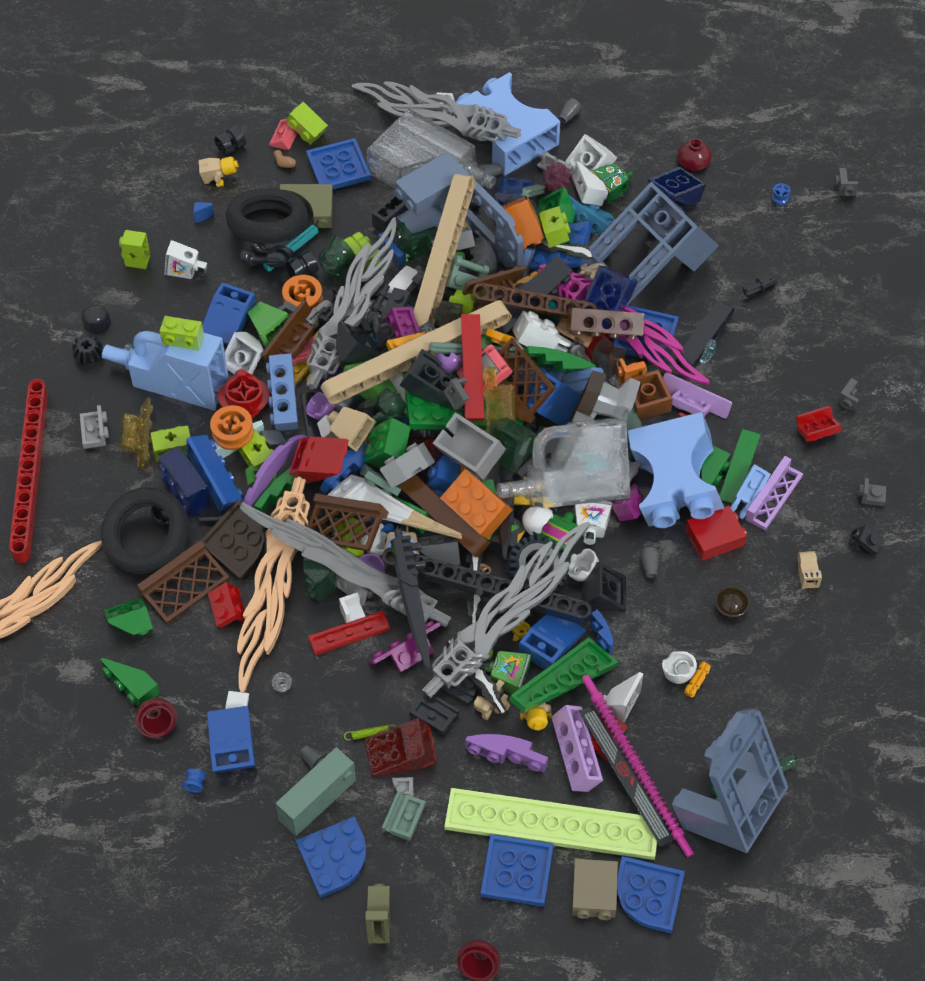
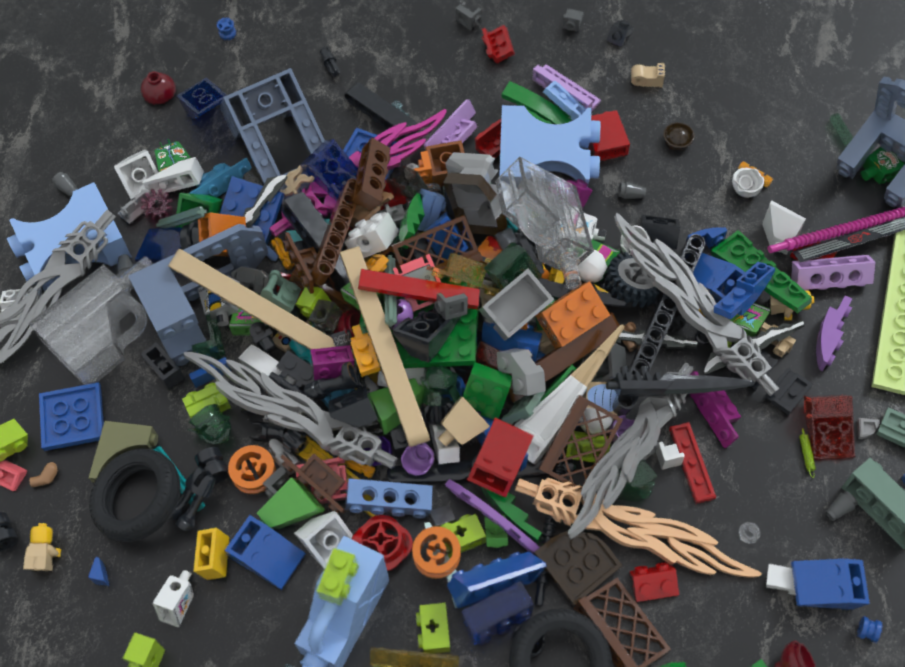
camera: 80 degrees left, 5 degrees up
(216, 274) = (211, 554): none -> yellow brick
(521, 651) = (746, 292): none -> blue slope
(555, 226) = (234, 204): lime brick -> none

